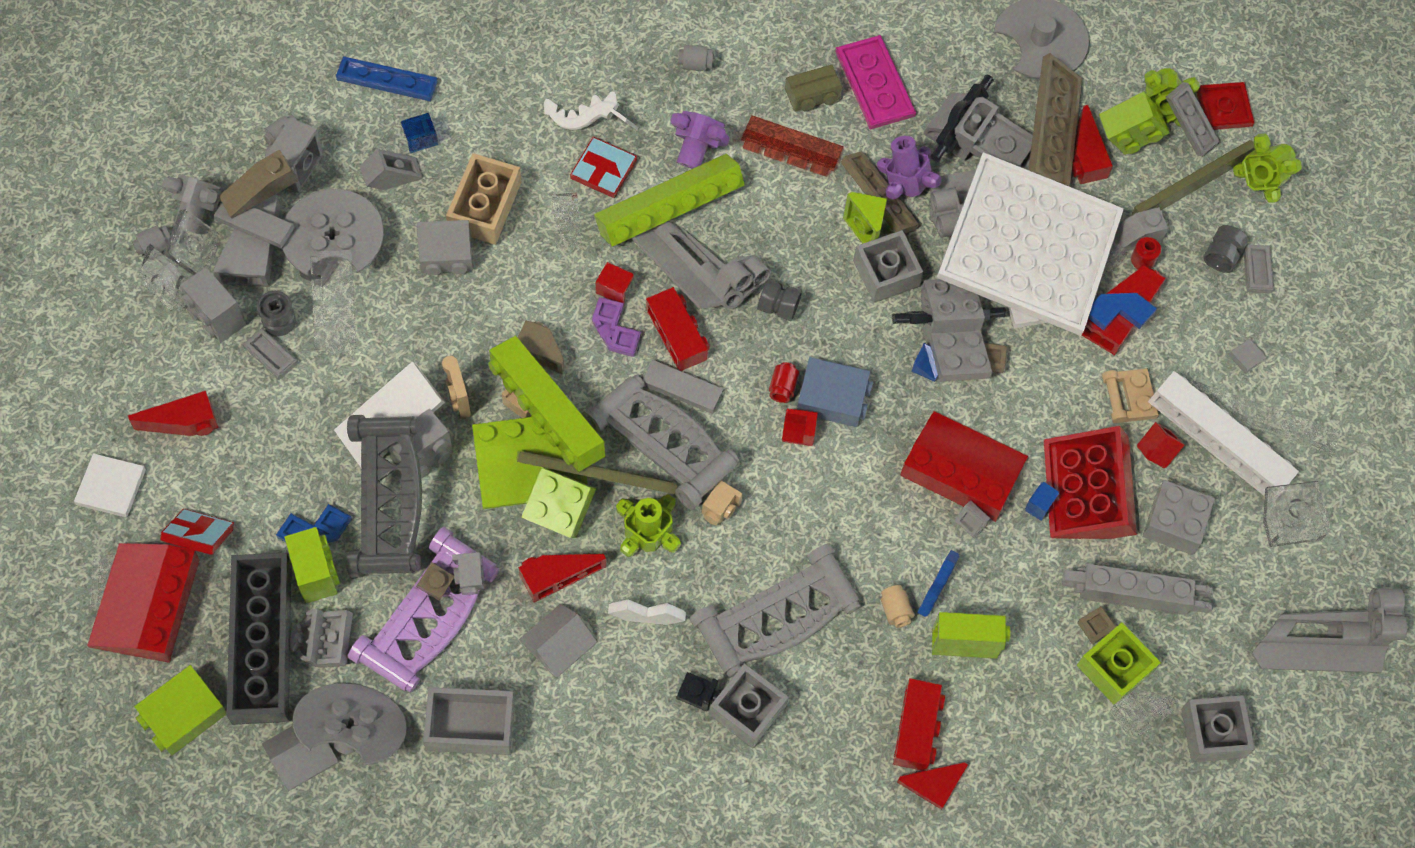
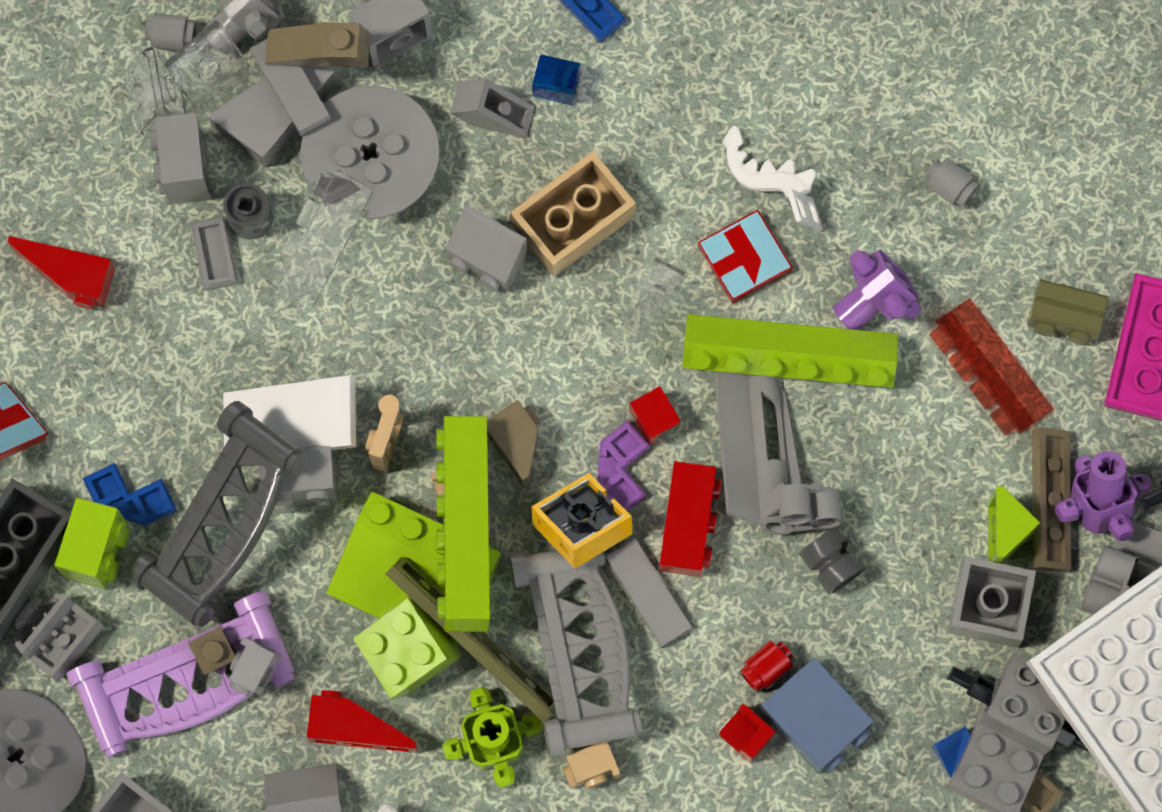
camera: 40 degrees right, 10 degrees up
(614, 365) = (581, 520): none -> piece

